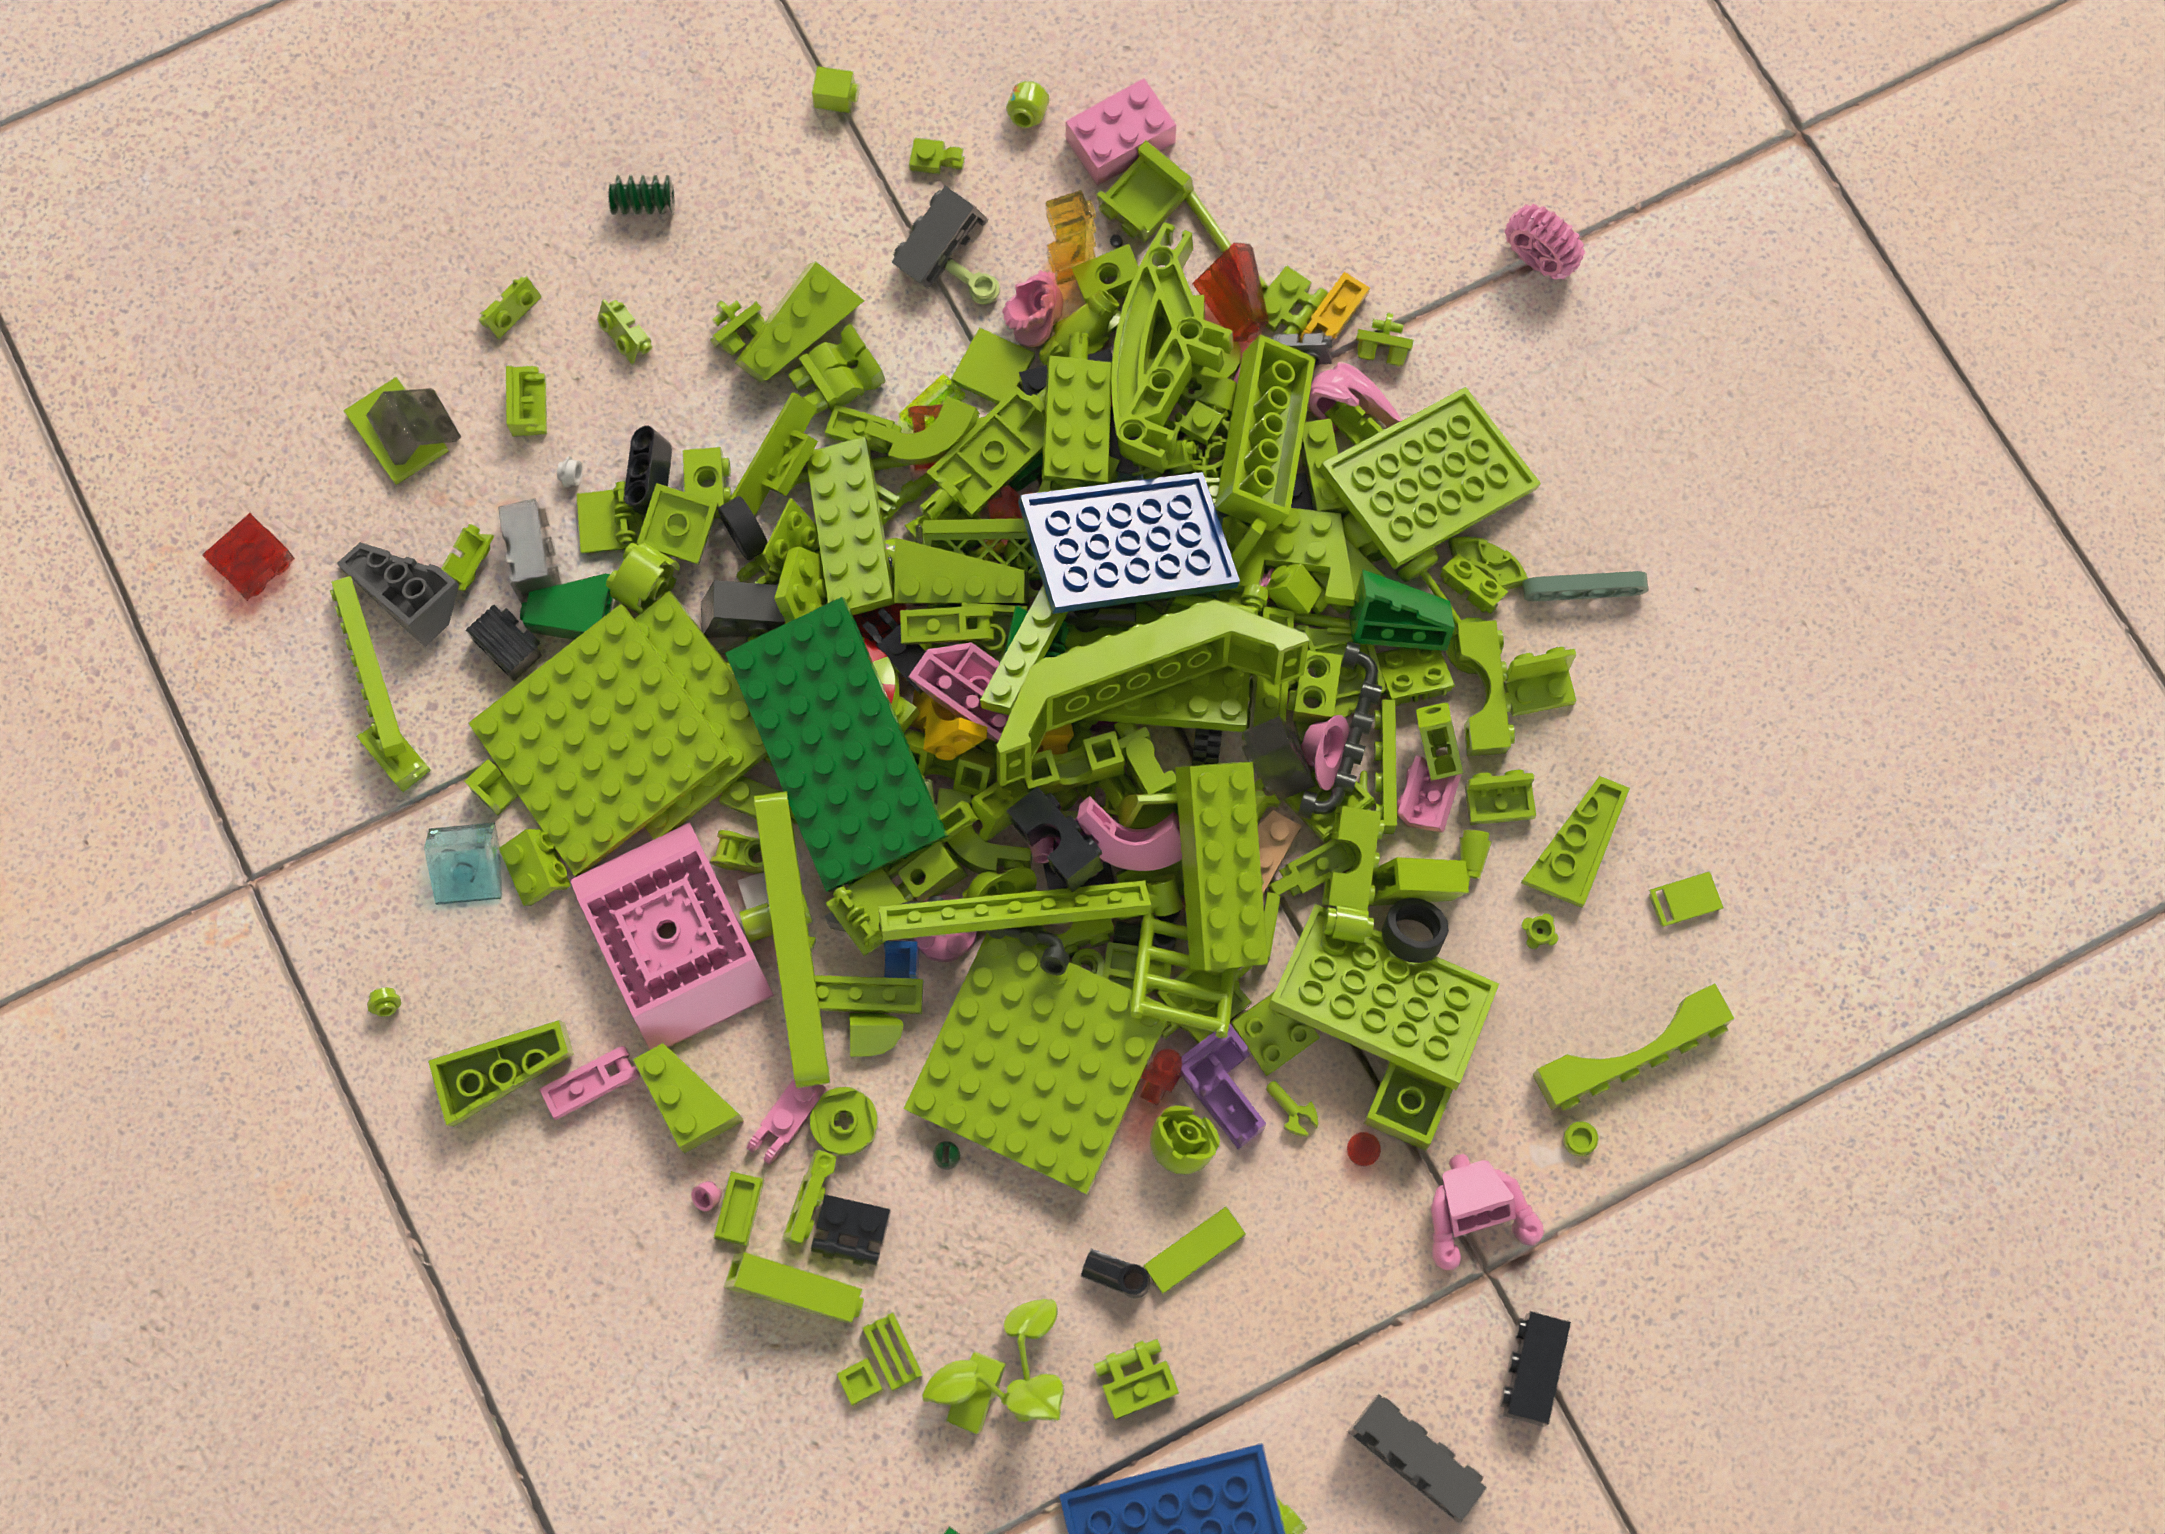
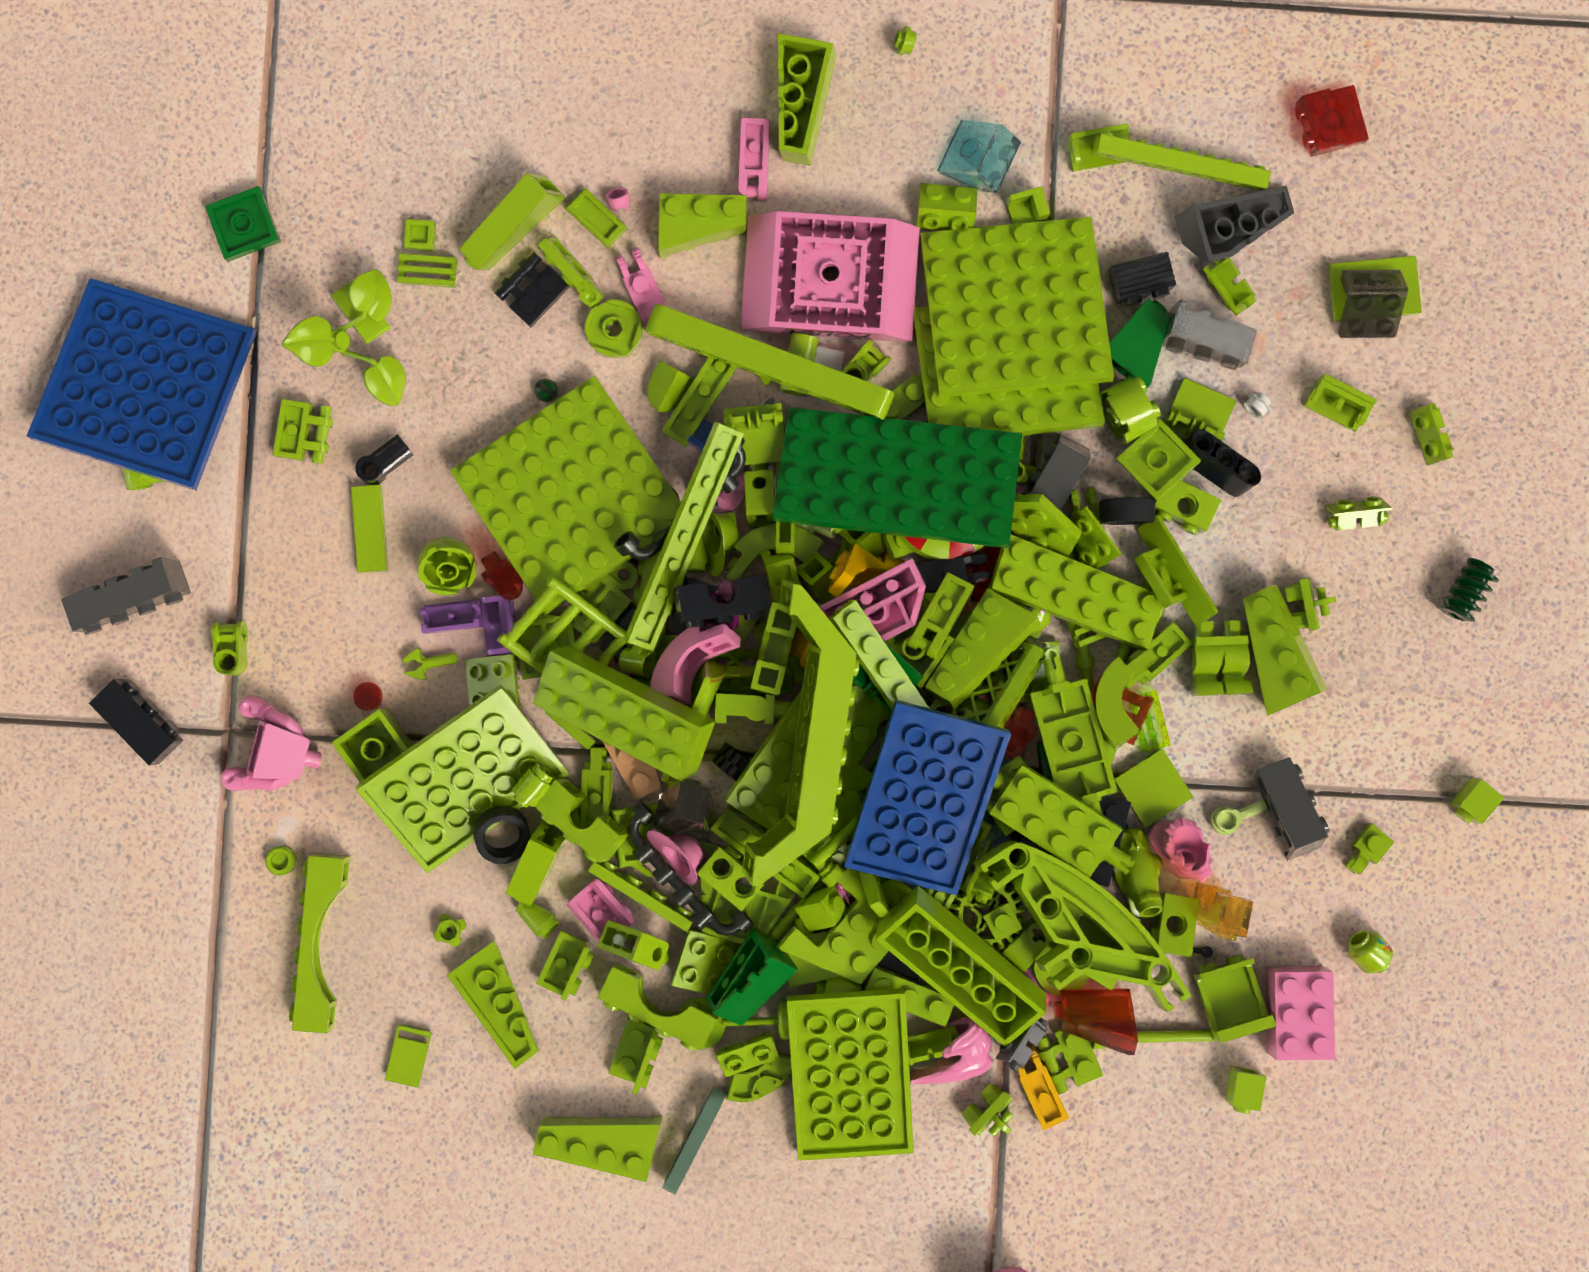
camera: 120 degrees right, 15 degrees up
(1219, 140) = (1245, 1089): none -> lime brick
(1399, 1319) = (228, 645): none -> lime piece
(1644, 666) = (601, 1143): none -> lime wedge

